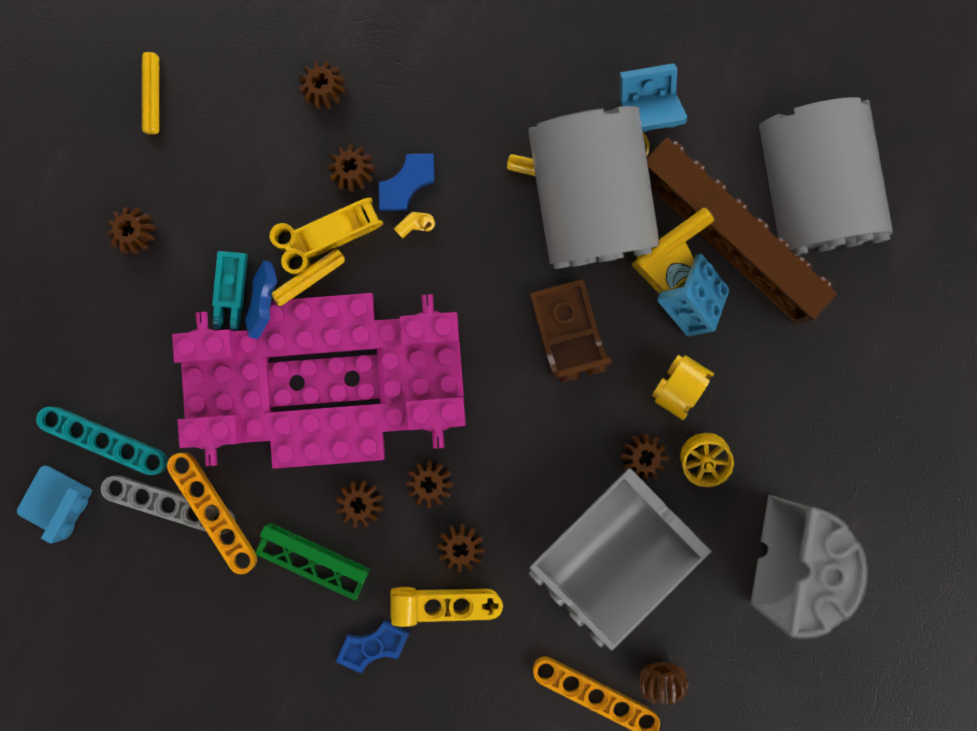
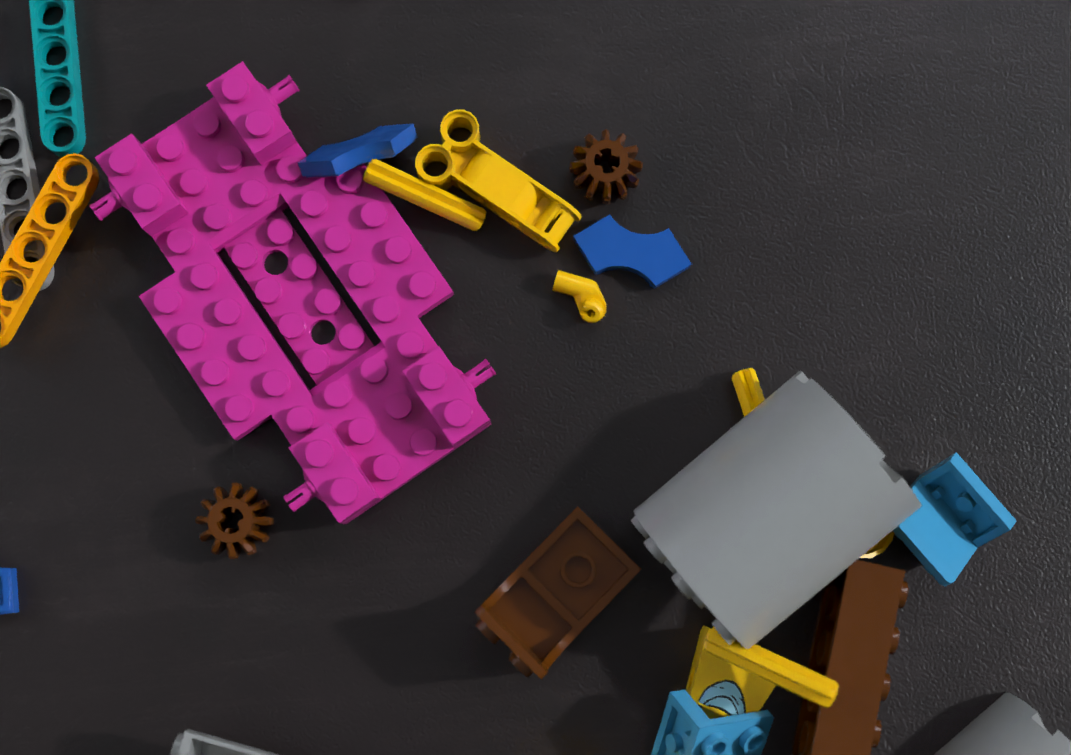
camera: 55 degrees right, 5 degrees down
(229, 287) = (351, 101): teal hinge -> none
(316, 555) = (53, 423): green fence -> none
(327, 92) = (701, 54): reddish brown gear -> none
(351, 508) = (141, 434): reddish brown gear -> none
(408, 605) = (53, 588): yellow piece -> none
(463, 557) = (160, 630): reddish brown gear -> none

